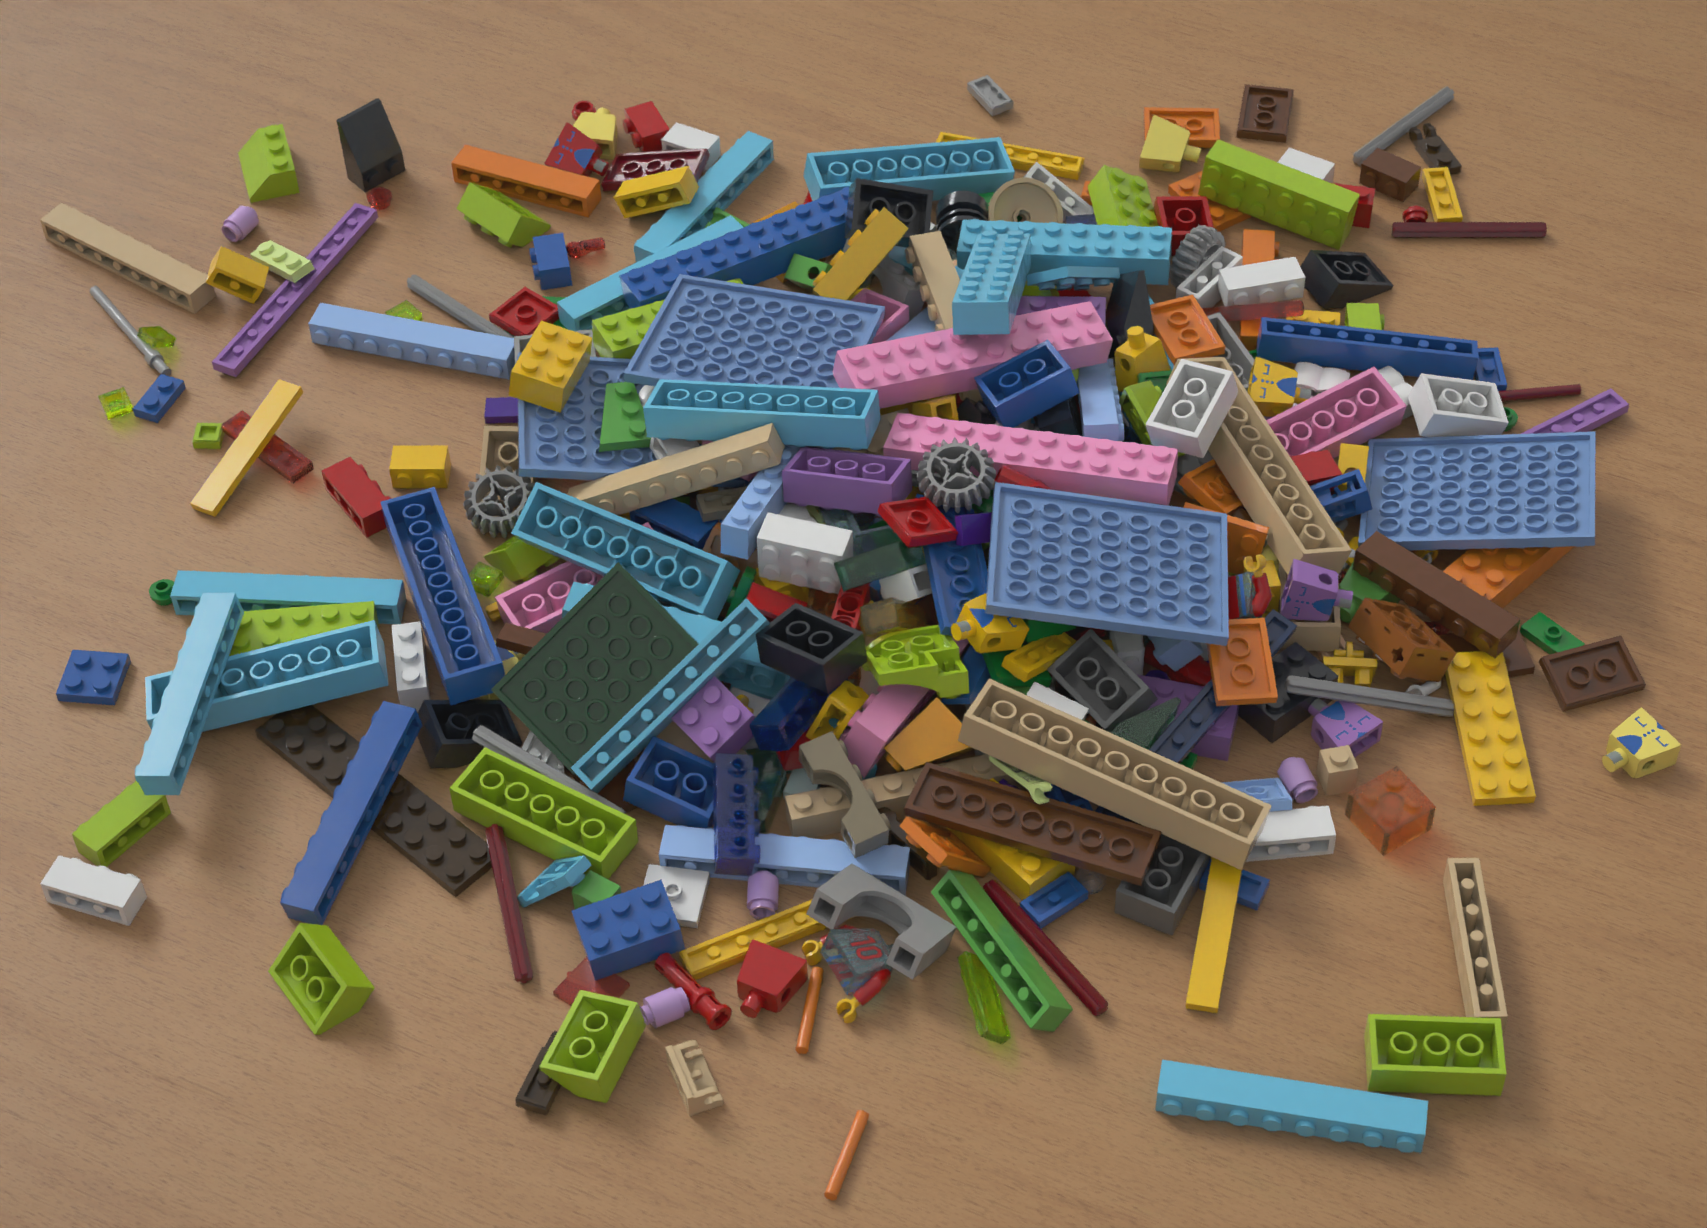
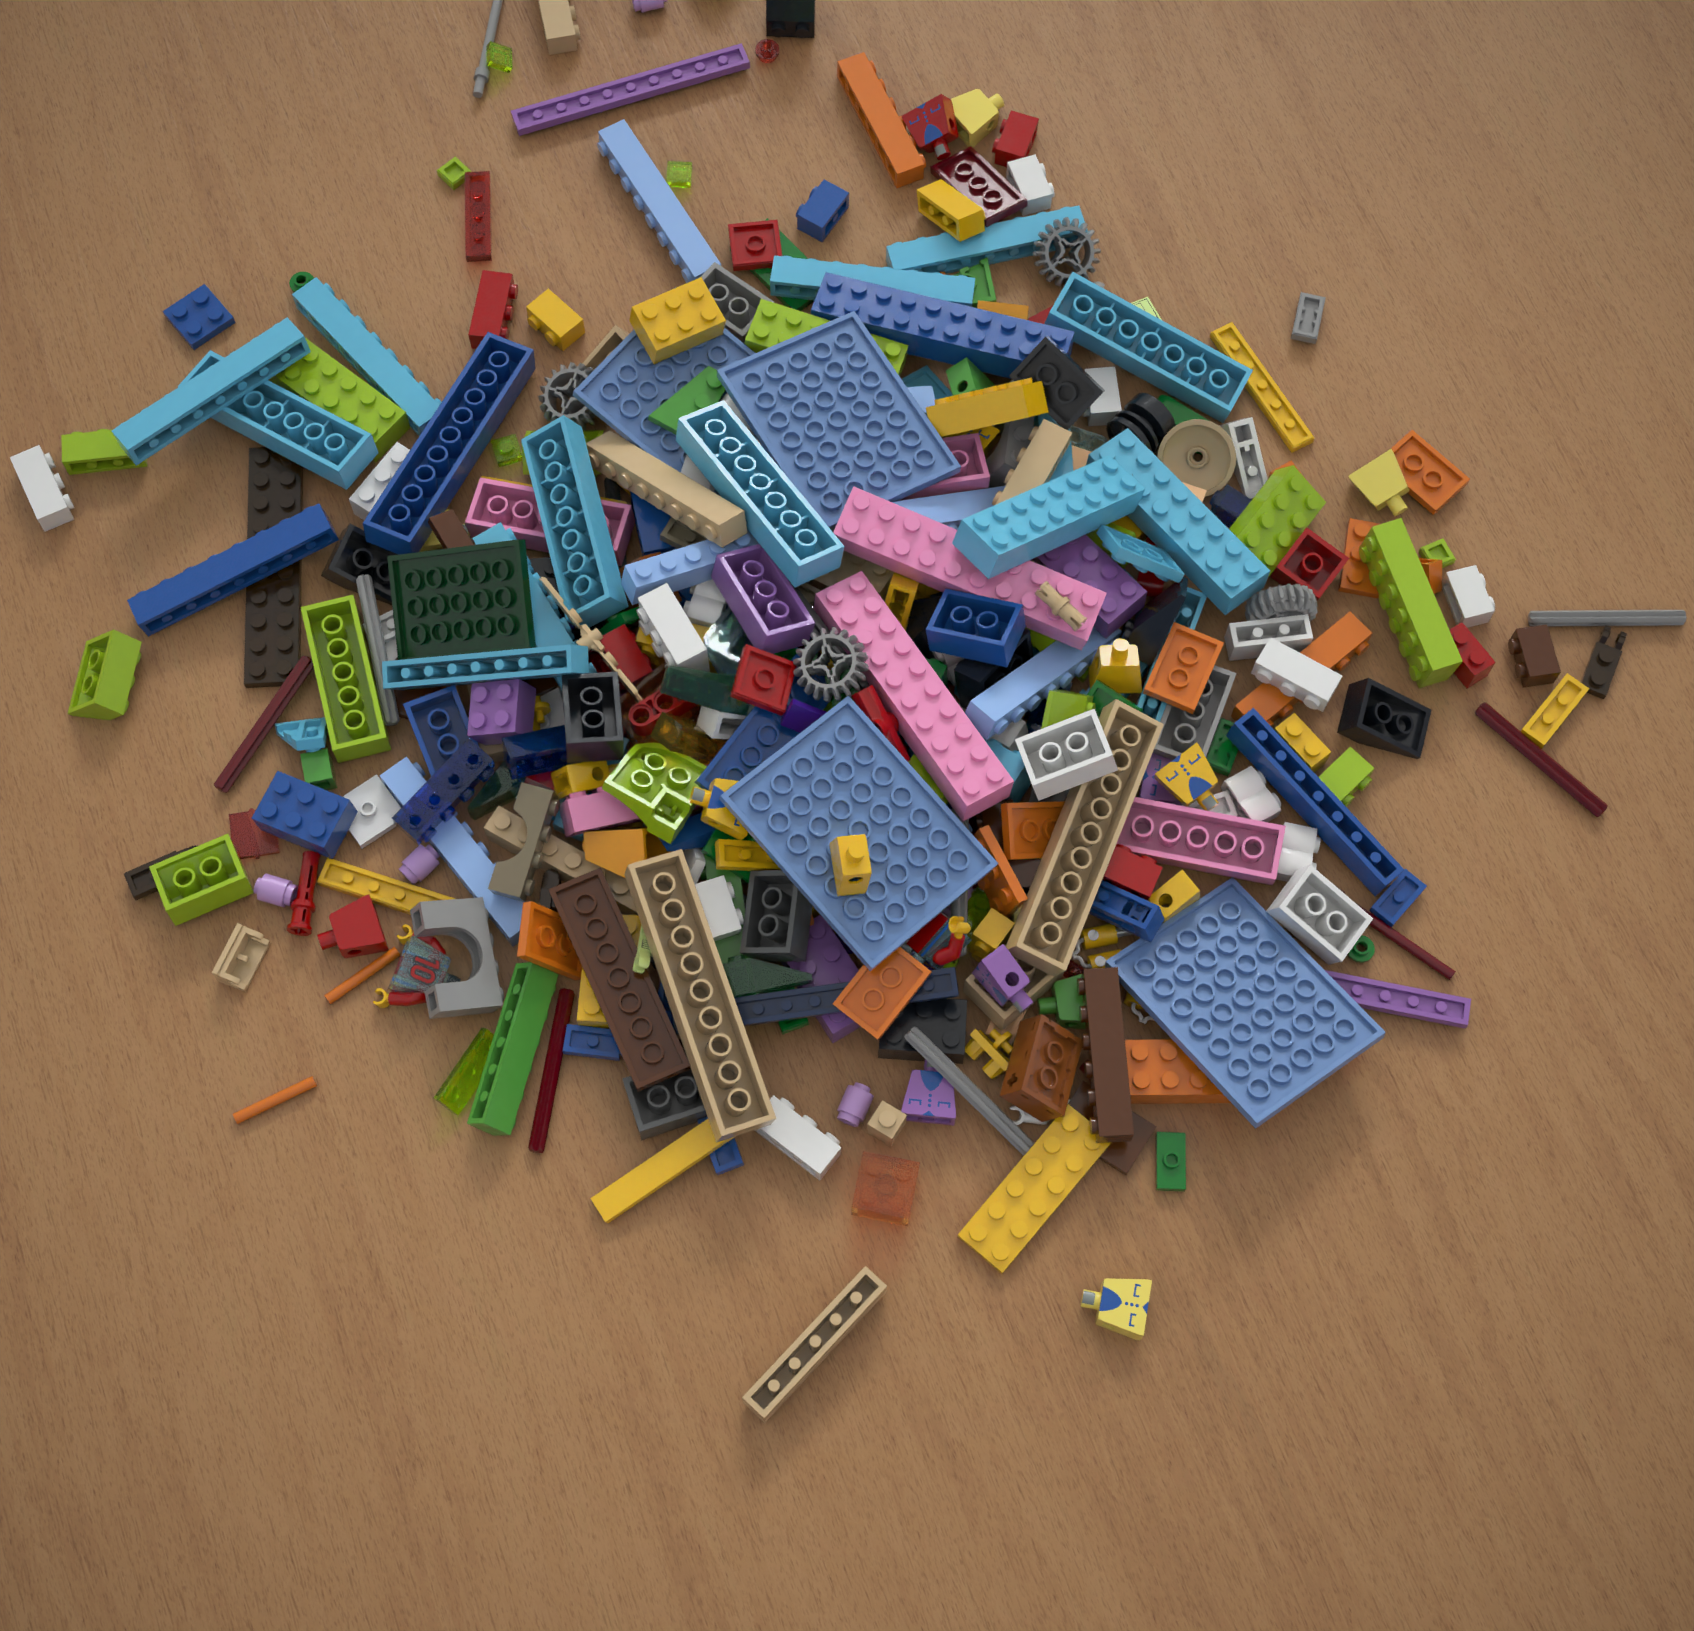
camera: 40 degrees right, 20 degrees up
(115, 403) = (420, 95): clear neon green plate -> none
(159, 398) = (454, 113): blue plate -> none
(237, 275) = (595, 46): yellow brick -> none
(246, 448) = (459, 207): yellow tile -> none
(282, 261) = (640, 57): yellowish green plate -> none
(453, 307) = (719, 205): light grey axle -> none
(500, 216) = (831, 138): lime slope -> none
(581, 248) = (854, 214): clear red arm -> none
(582, 106) = (989, 81): red plate -> none
(689, 596) = (590, 639): none -> tan piece
(770, 157) = (1059, 244): none -> light grey gear
(1074, 323) = (1060, 606): none -> tan pin
(1137, 571) = (850, 860): none -> yellow torso
(1258, 310) = (1254, 686): clear red axle -> none
(1265, 113) = (1509, 512): reddish brown tile -> none
(1267, 790) = (807, 1091): light blue tile -> none
(1292, 1106) = (569, 1337): medium azure brick -> none
(1415, 214) = (1509, 710): red plate -> none
(1434, 1054) = (695, 1394): lime brick -> none
(1592, 673) = (1161, 1217): reddish brown tile -> none

